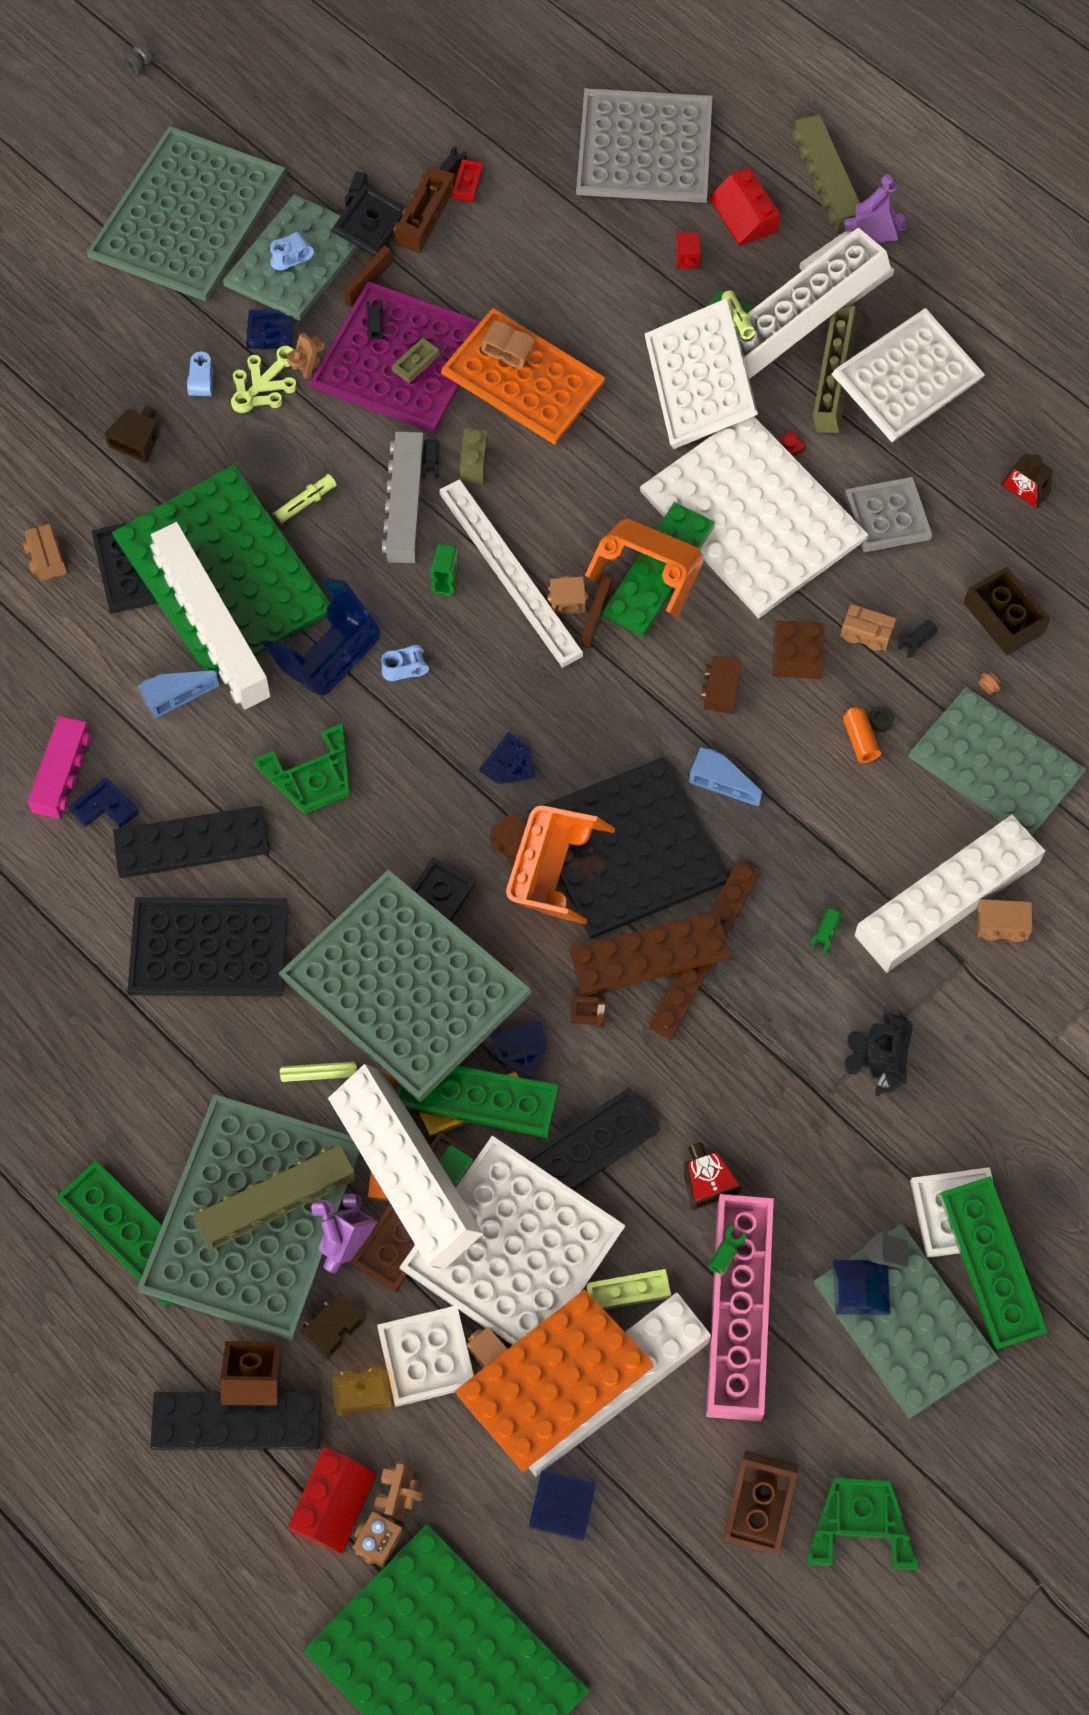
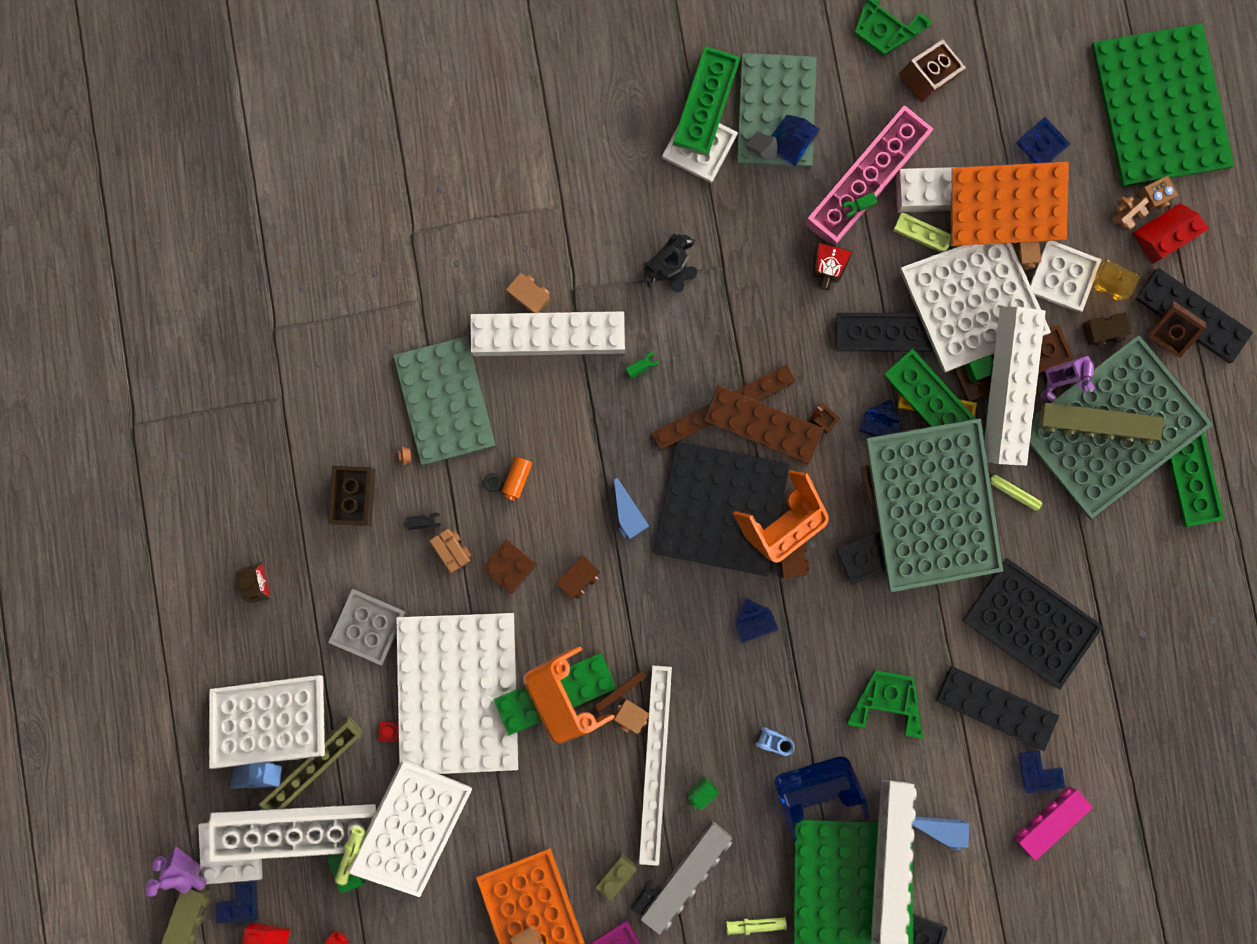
camera: 145 degrees left, 20 degrees up
(797, 233) = (244, 908): none -> clear blue plate
(874, 327) = (256, 776): none -> medium blue slope

